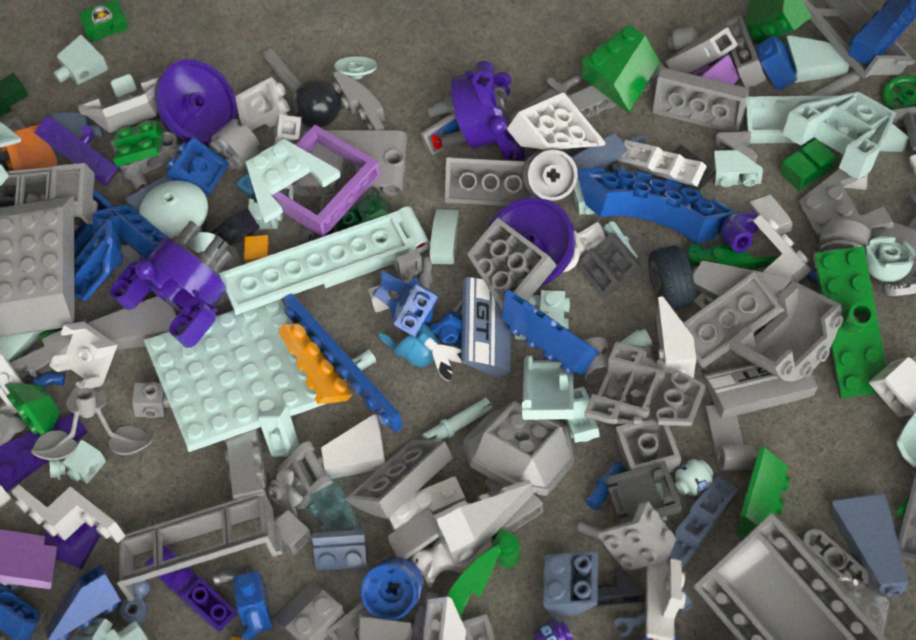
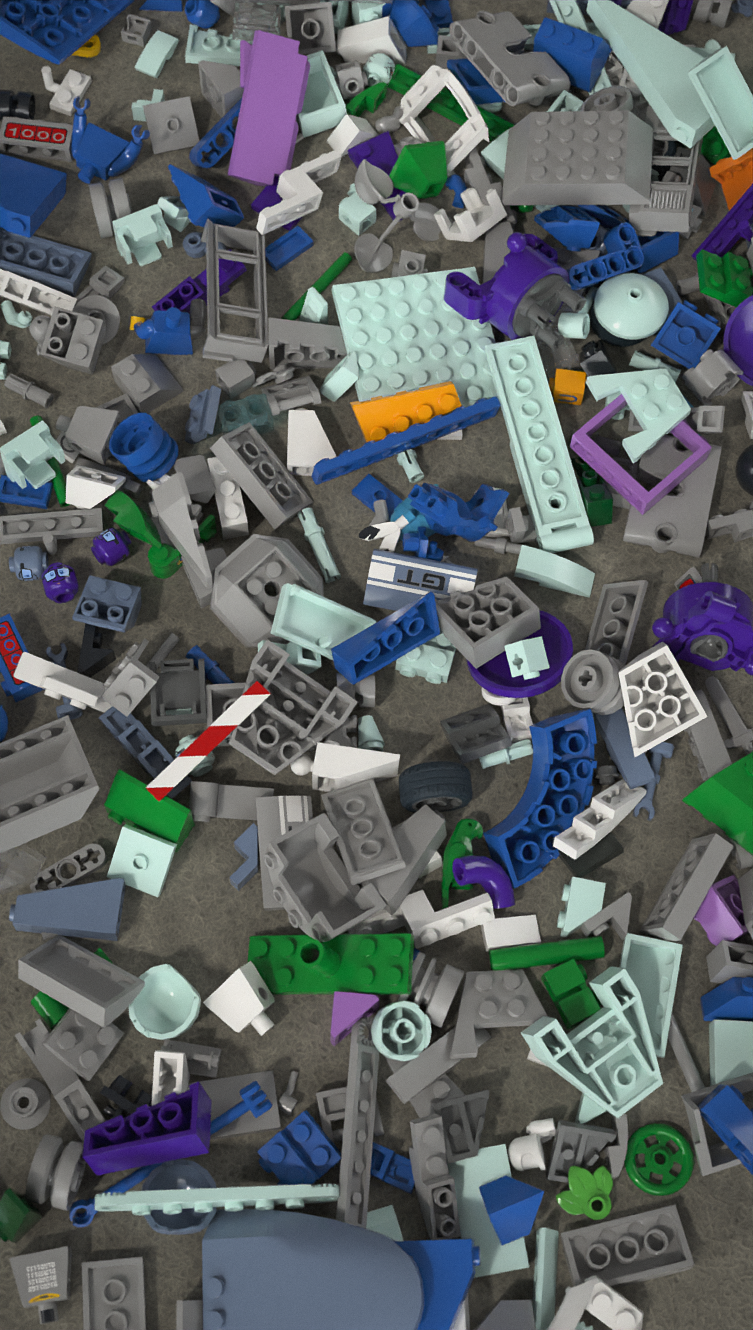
camera: 90 degrees right, 10 degrees up
(127, 517) = (287, 248): none -> blue tile
(174, 484) = (320, 285): none -> green piece
(210, 470) = (314, 308): none -> light aqua slope
(226, 195) = (647, 363): none -> light aqua pin
(399, 382) = (371, 490): none -> blue plate
(423, 373) = (381, 513): none -> light grey arm
(502, 601) = (111, 546): none -> dark purple head
(540, 224) = (527, 657): none -> light aqua brick
(695, 441) = (208, 741): none -> sticker
(764, 412) = (248, 847): none -> sand blue slope
(781, 186) = (546, 953): none -> green piece
(808, 494) = (141, 860): none -> light aqua plate
(891, 301) = (349, 1009): none -> medium lavender slope

